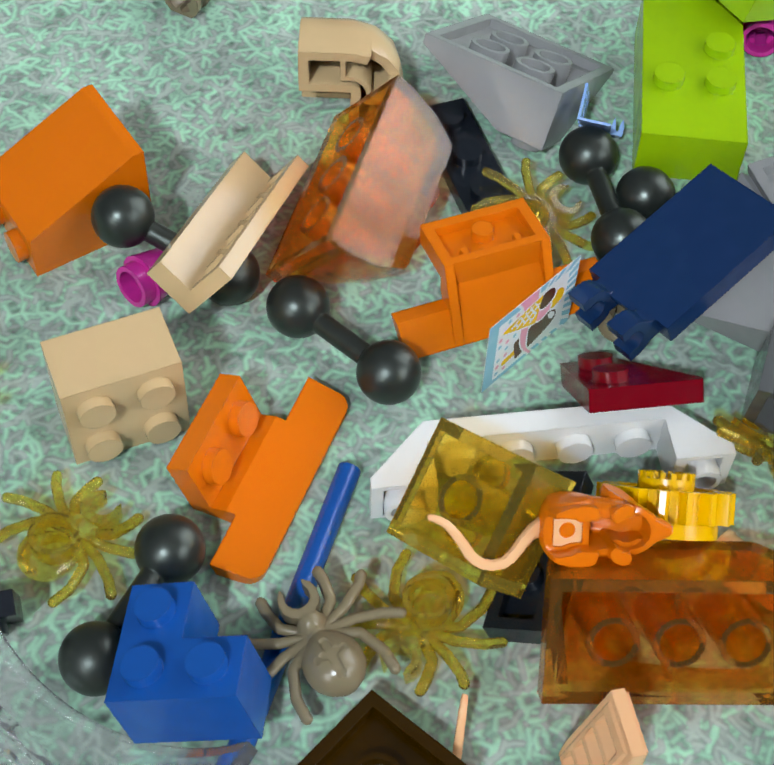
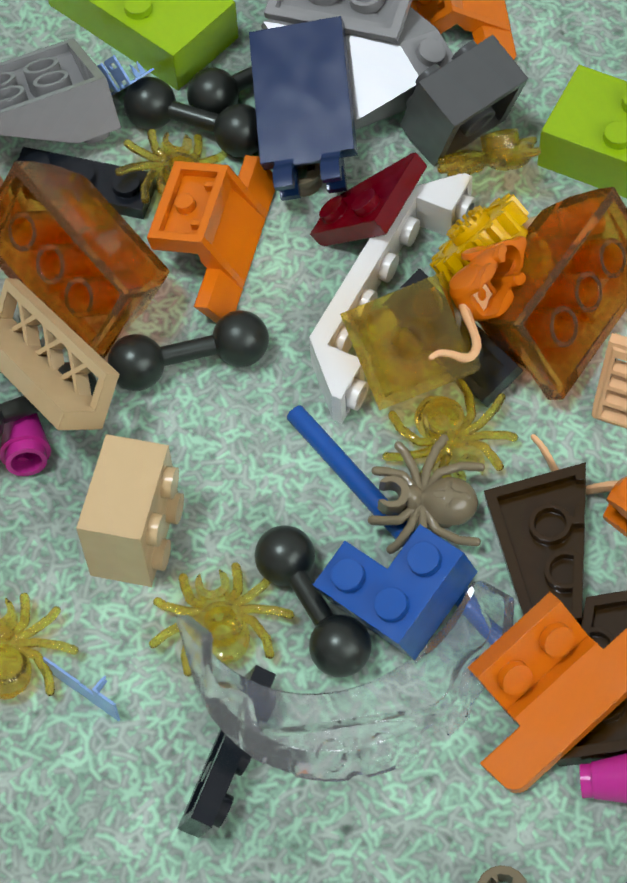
camera: 50 degrees left, 5 degrees up
(254, 468) = (255, 466): orange plate -> none
(529, 324) = (279, 226): sticker -> none

